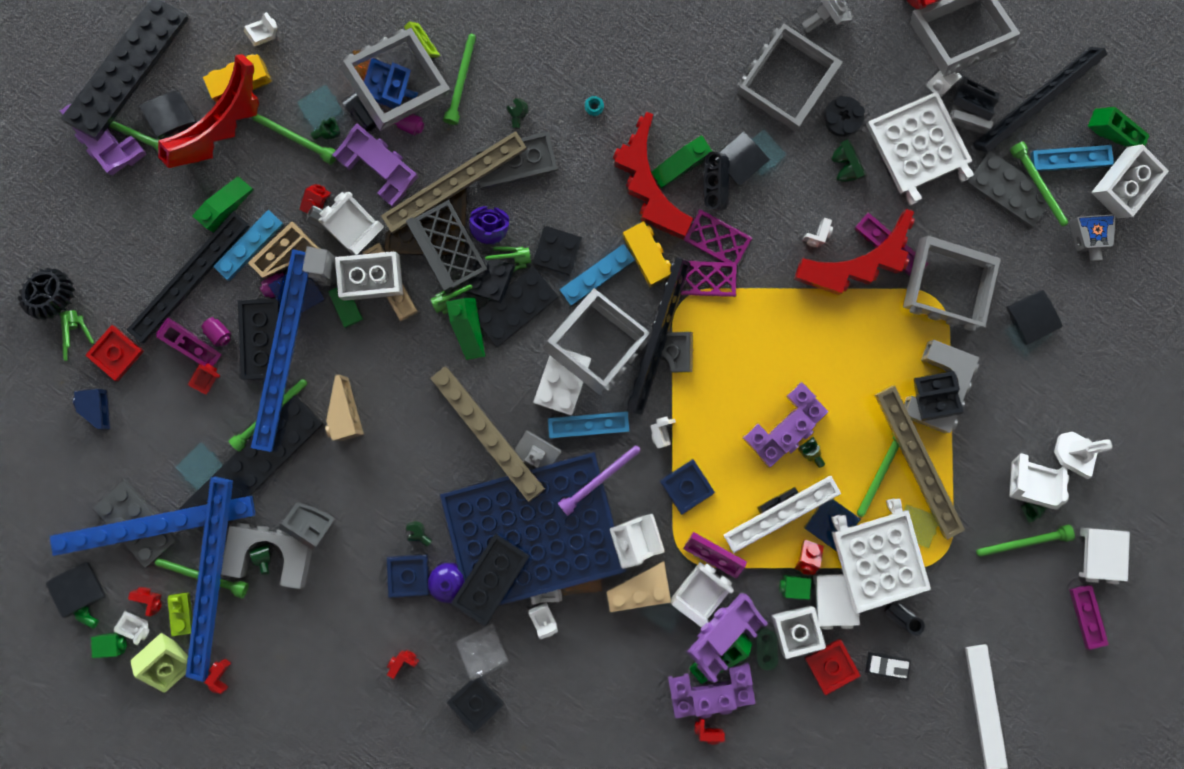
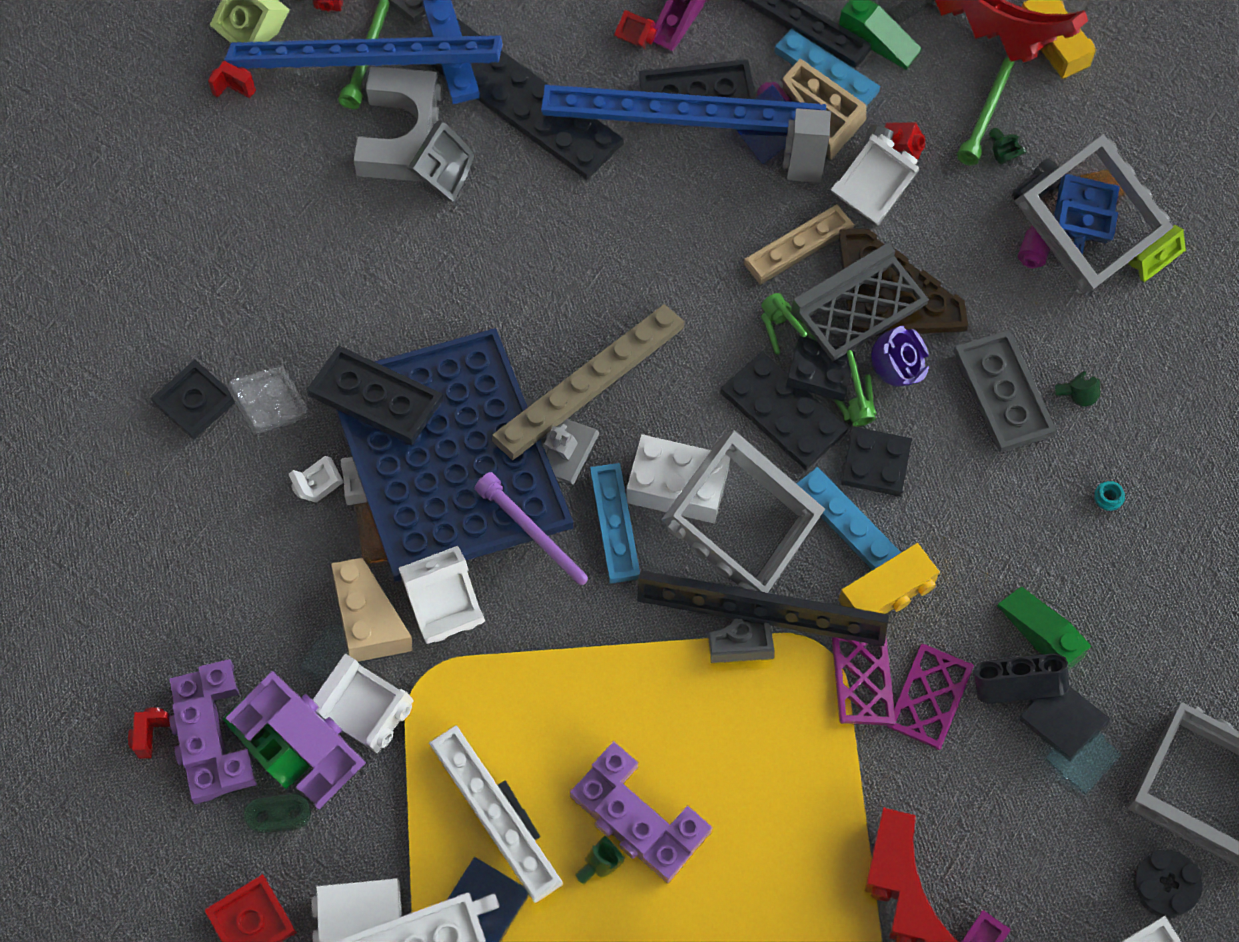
camera: 85 degrees right, 20 degrees down
(180, 614) = (318, 29): lime plate -> none
(199, 466) = (519, 37): clear light blue piece -> none
(216, 332) = (701, 39): magenta brick -> none
(239, 441) = (553, 76): bright green piece -> none
(261, 31) = (1130, 56): white bracket -> none
(261, 557) = (395, 116): dark green piece -> none
(319, 106) = (1039, 137): clear light blue piece -> none
(342, 415) = (606, 192): tan slope -> none
(347, 310) = (757, 191): green tile -> none
(369, 276) = (802, 207): white brick -> none
(387, 164) = (971, 216): medium lavender bracket -> none
(396, 663) = (252, 294): red bracket -> none
(407, 576) = (376, 300): dark blue tile -> none
(418, 530) = (439, 306): dark green piece -> none
(445, 582) = (370, 341): dark purple cylinder -> none
(452, 116) = (1058, 302): bright green piece -> none
(454, 181) = (960, 310): dark tan plate -> none
(466, 326) = (749, 339): green slope -> none
(634, 160) = (999, 571): red arch -> none
(660, 433) = (611, 627): white bracket -> none
(687, 486) = (530, 671): dark blue tile -> none
(715, 555) = (424, 716): magenta plate -> none
(795, 587) = (378, 851): green brick -> none
(798, 631) = (306, 856): white brick -> none
(810, 557) = (427, 867): bracket -> none
(824, 231) = (966, 858): white bracket -> none
(854, 169) = (1103, 893): dark green tile -> none

